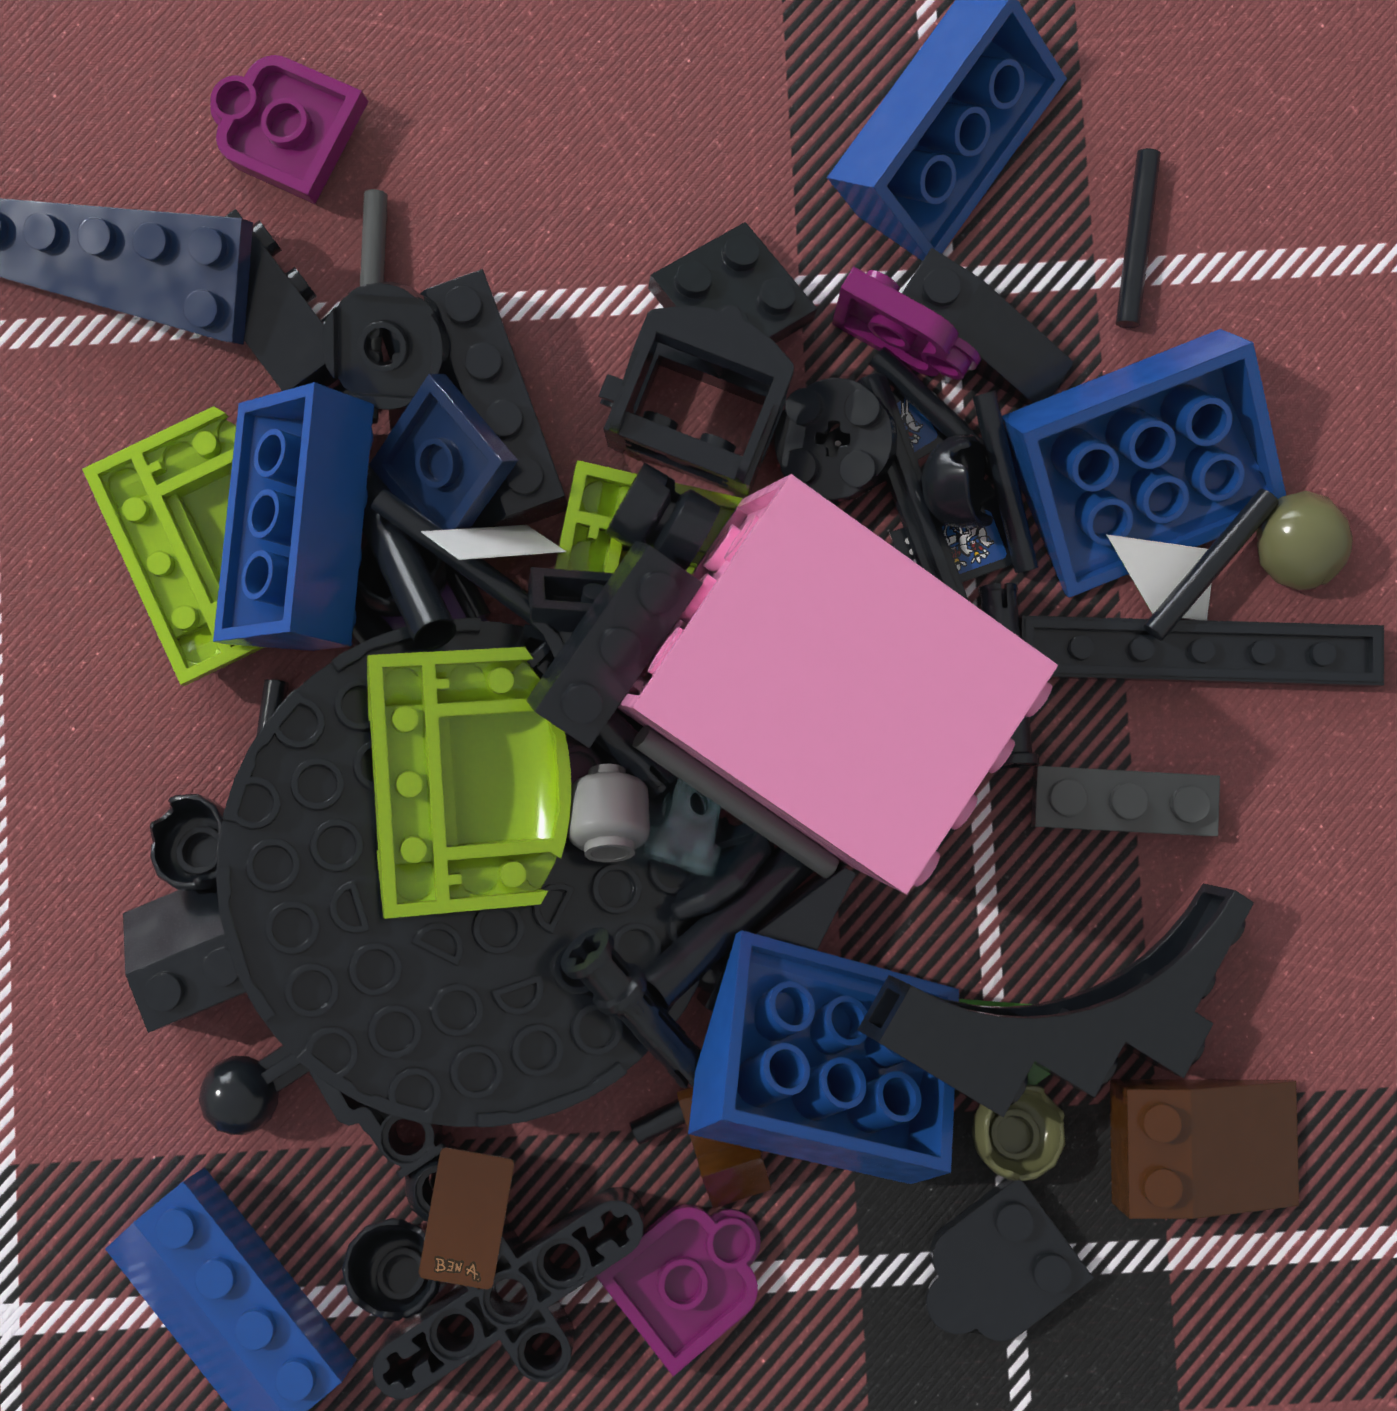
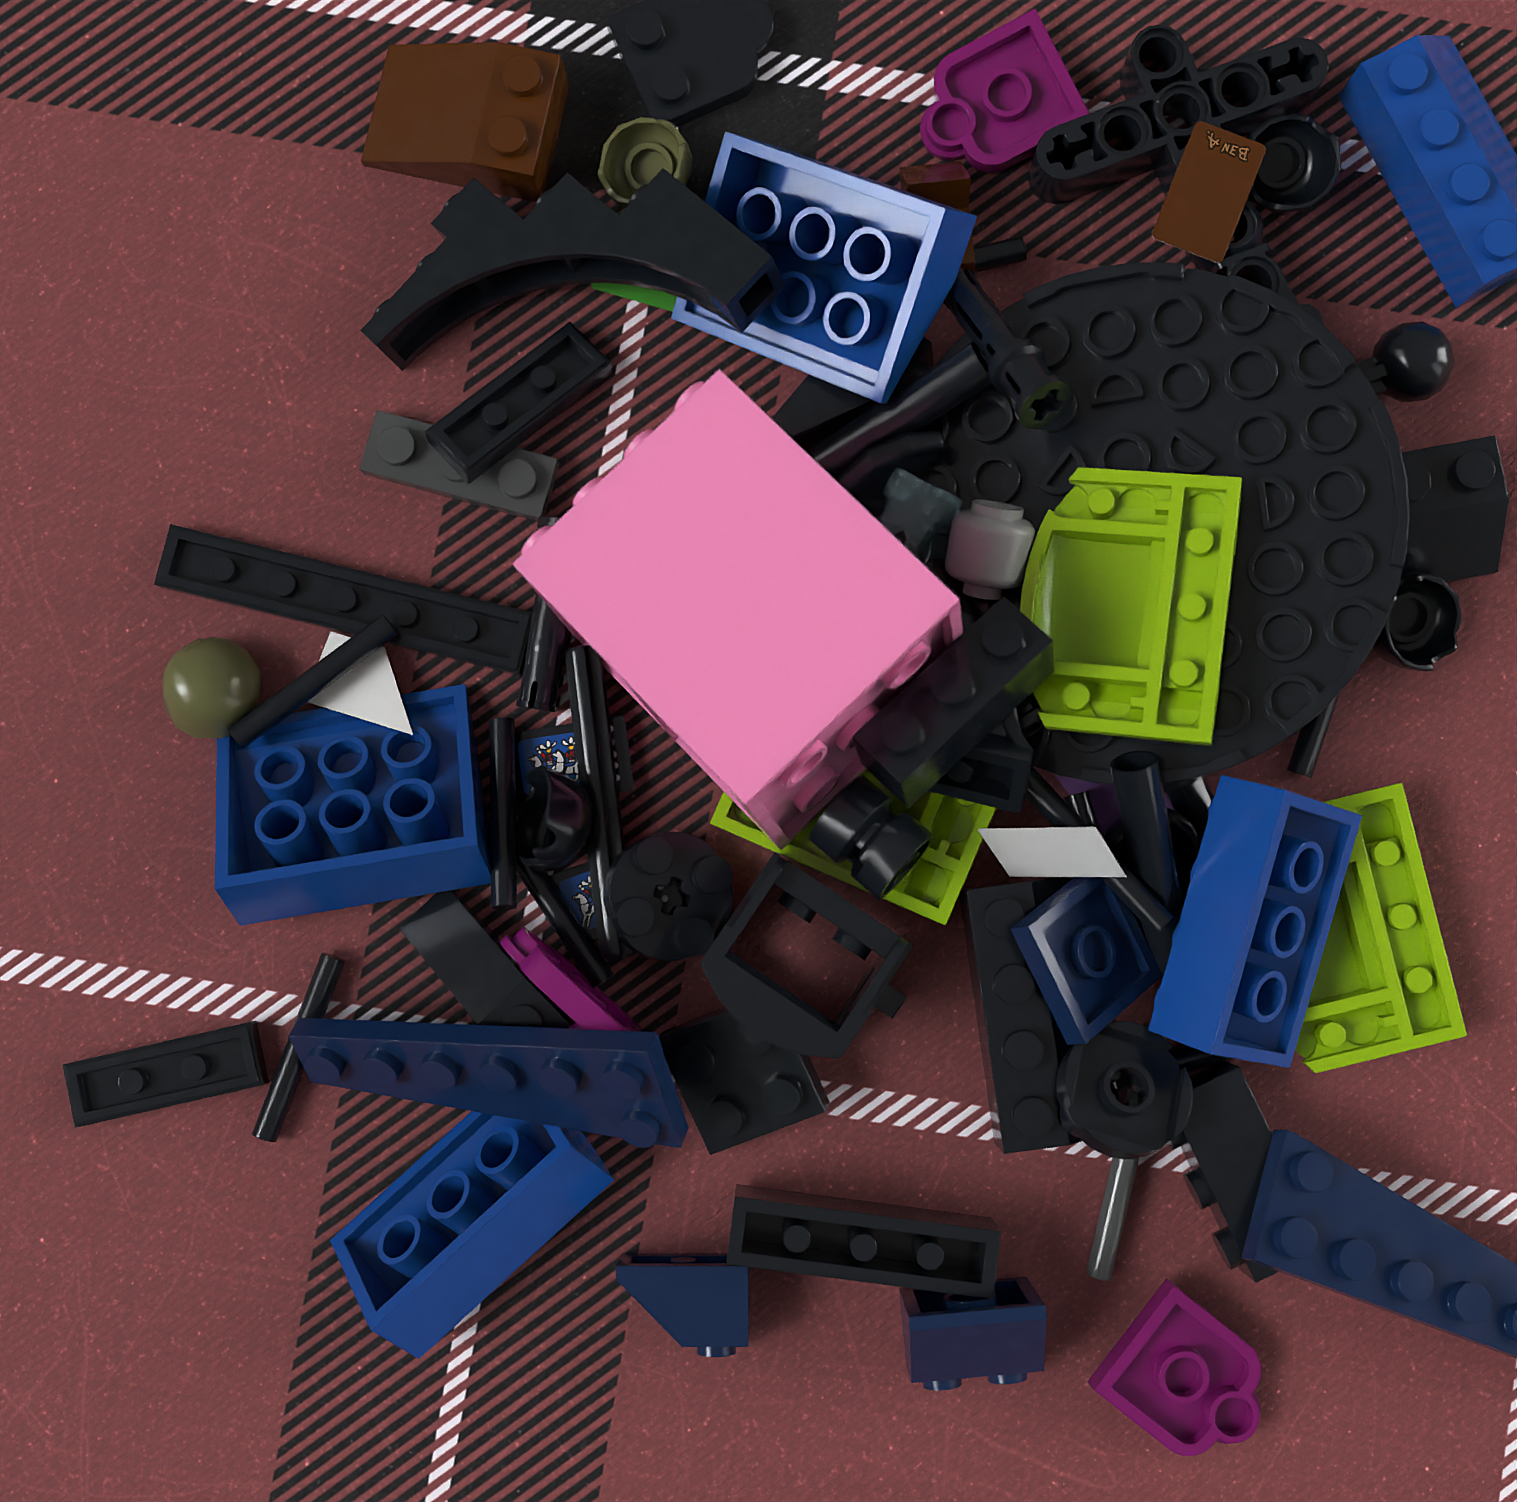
camera: 165 degrees left, 0 degrees up
(480, 119) = (973, 1336): none -> dark blue slope
(593, 171) = (864, 1241): none -> black brick
(734, 96) = (691, 1297): none -> dark blue slope
(923, 242) = (533, 1074): none -> dark blue wing
(1084, 871) = (518, 402): none -> black tile
(1251, 189) = (165, 1074): none -> black tile

